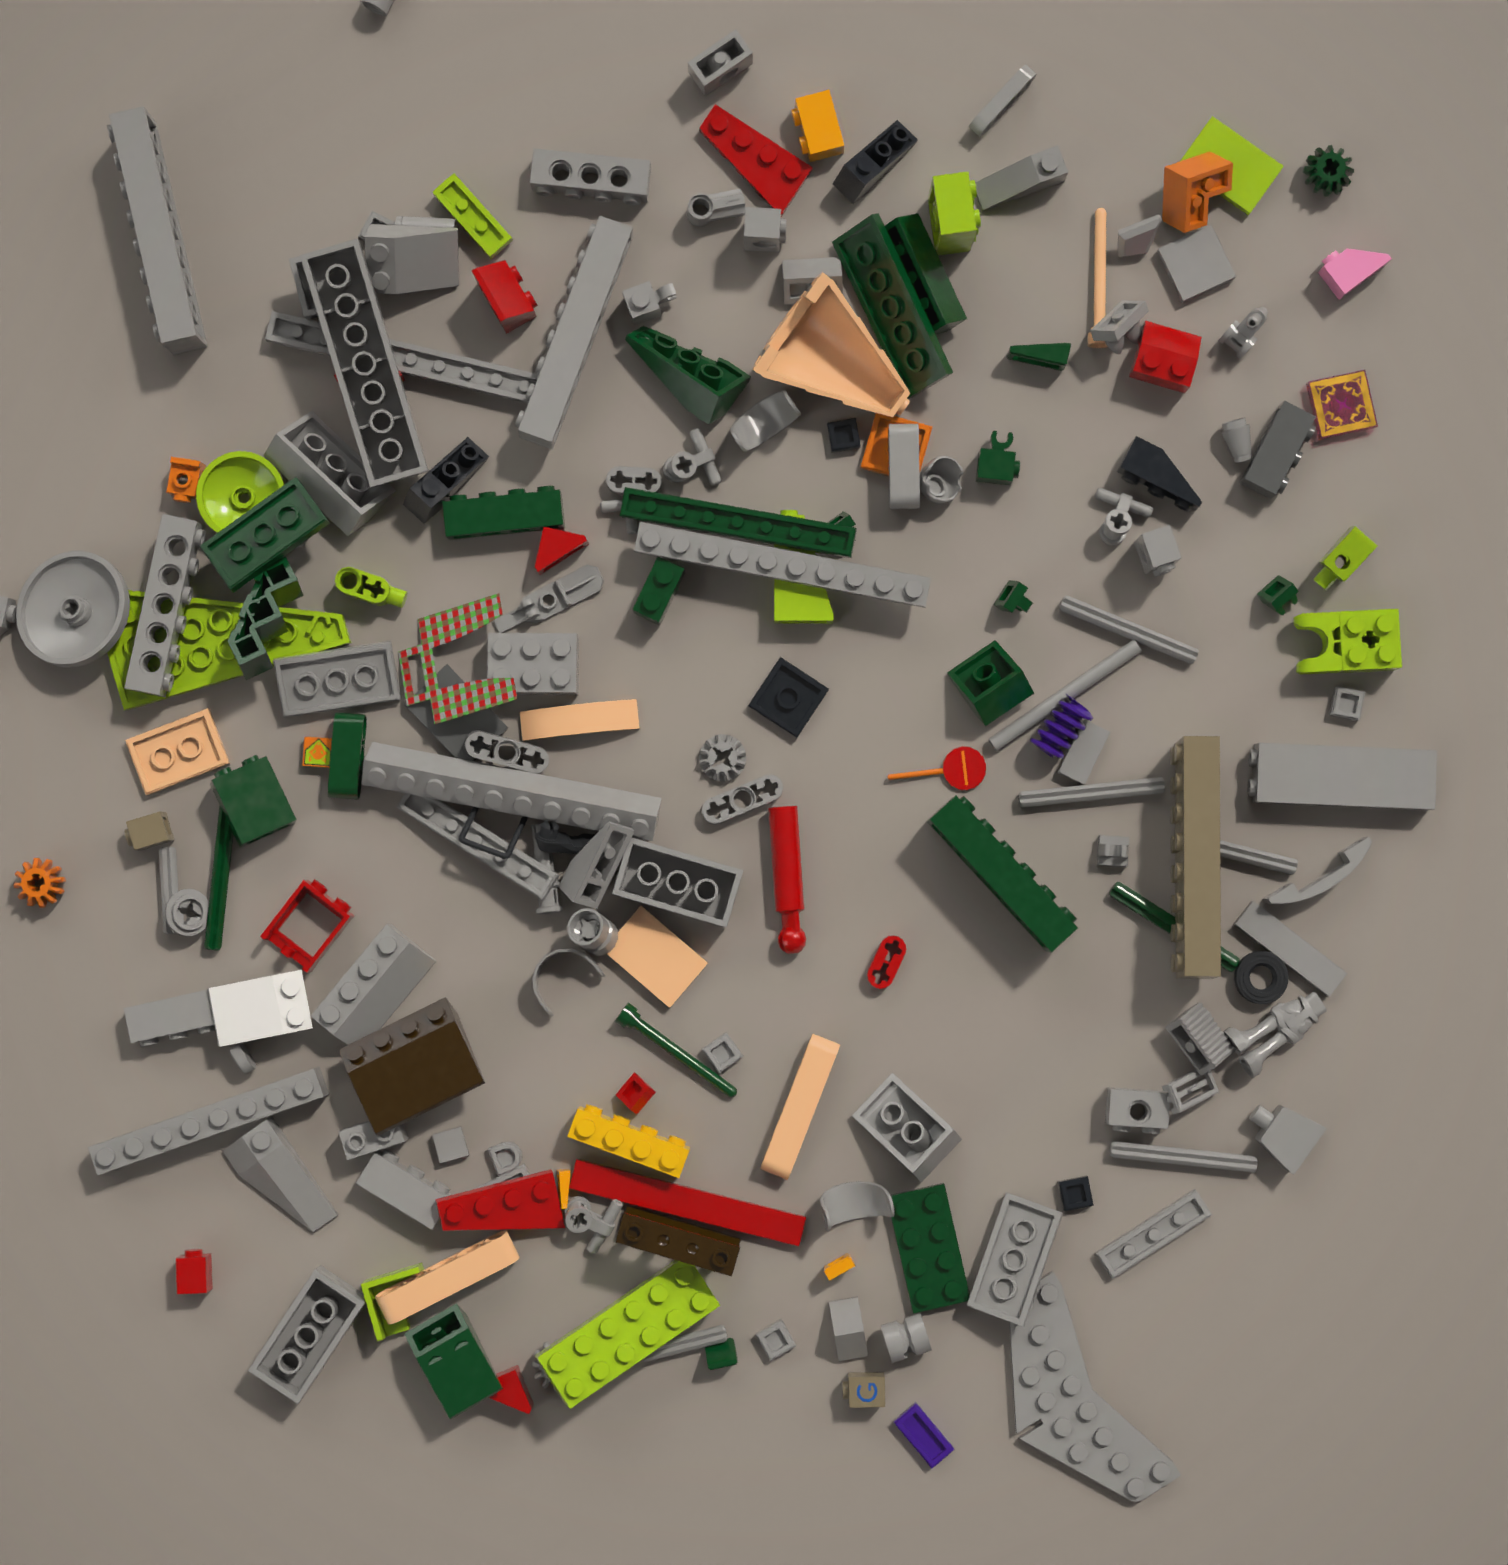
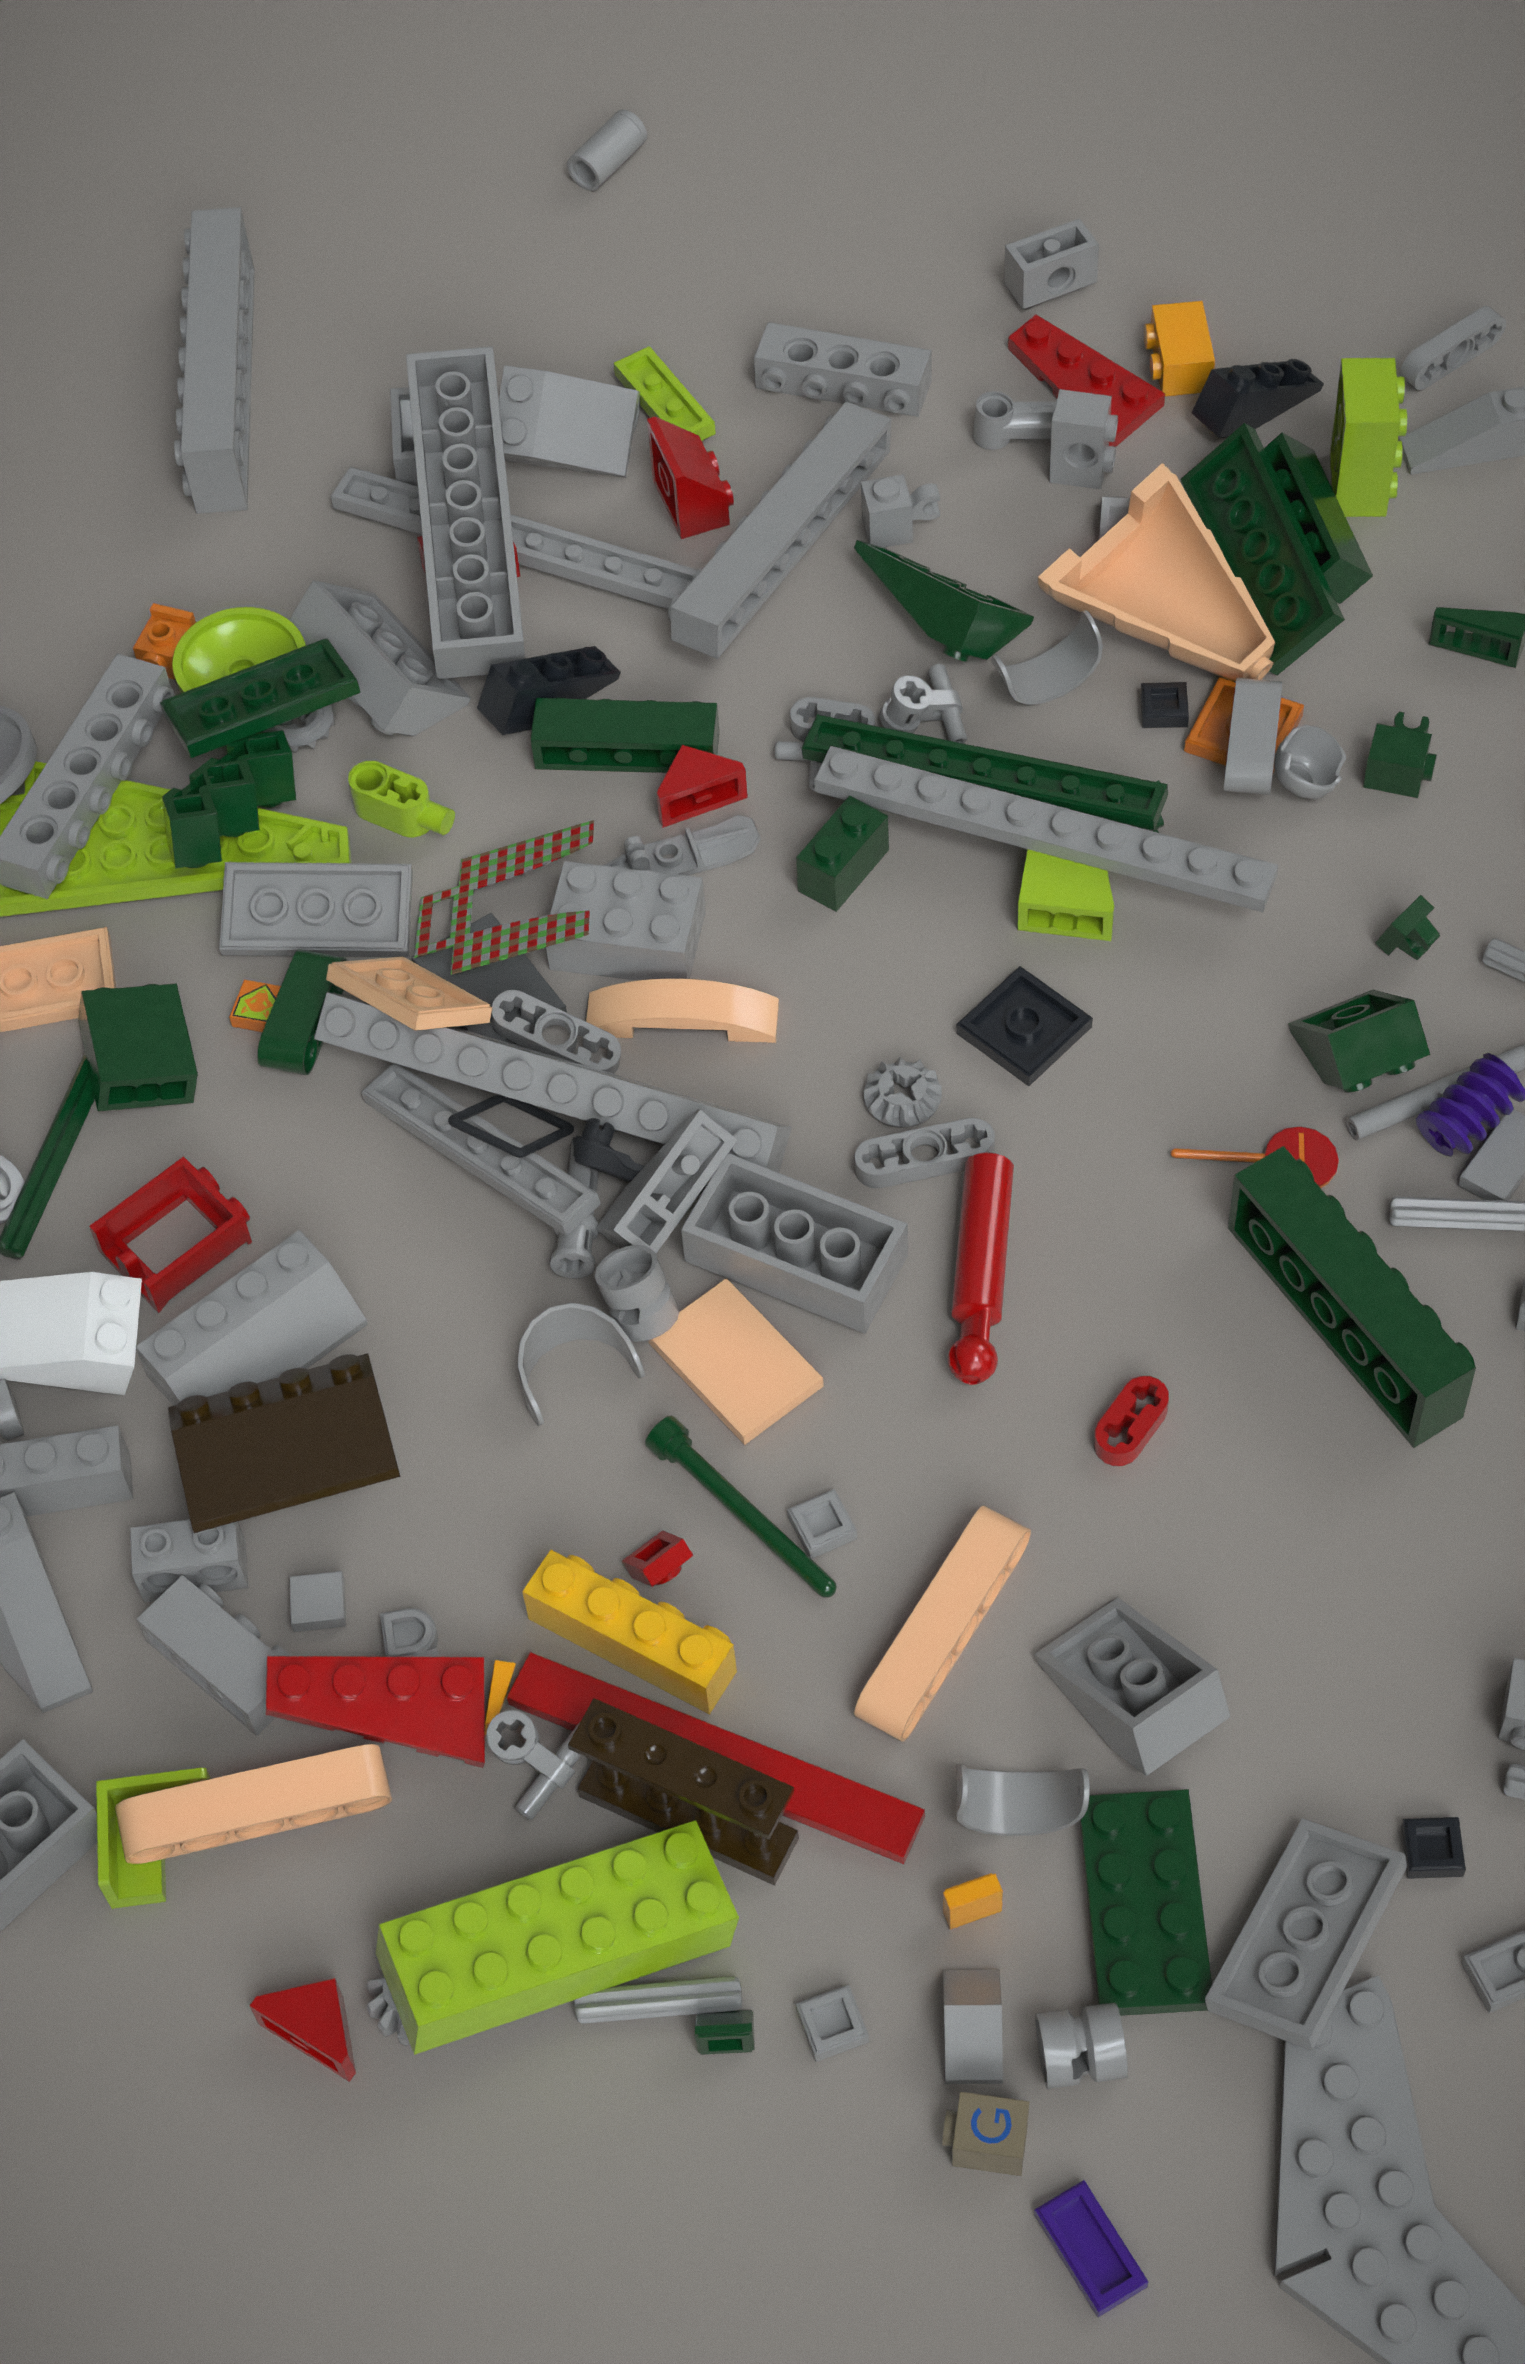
camera: 10 degrees right, 30 degrees down
(412, 745) = (409, 993): none -> light nougat tile
(453, 1360) = (226, 1938): dark green slope -> none

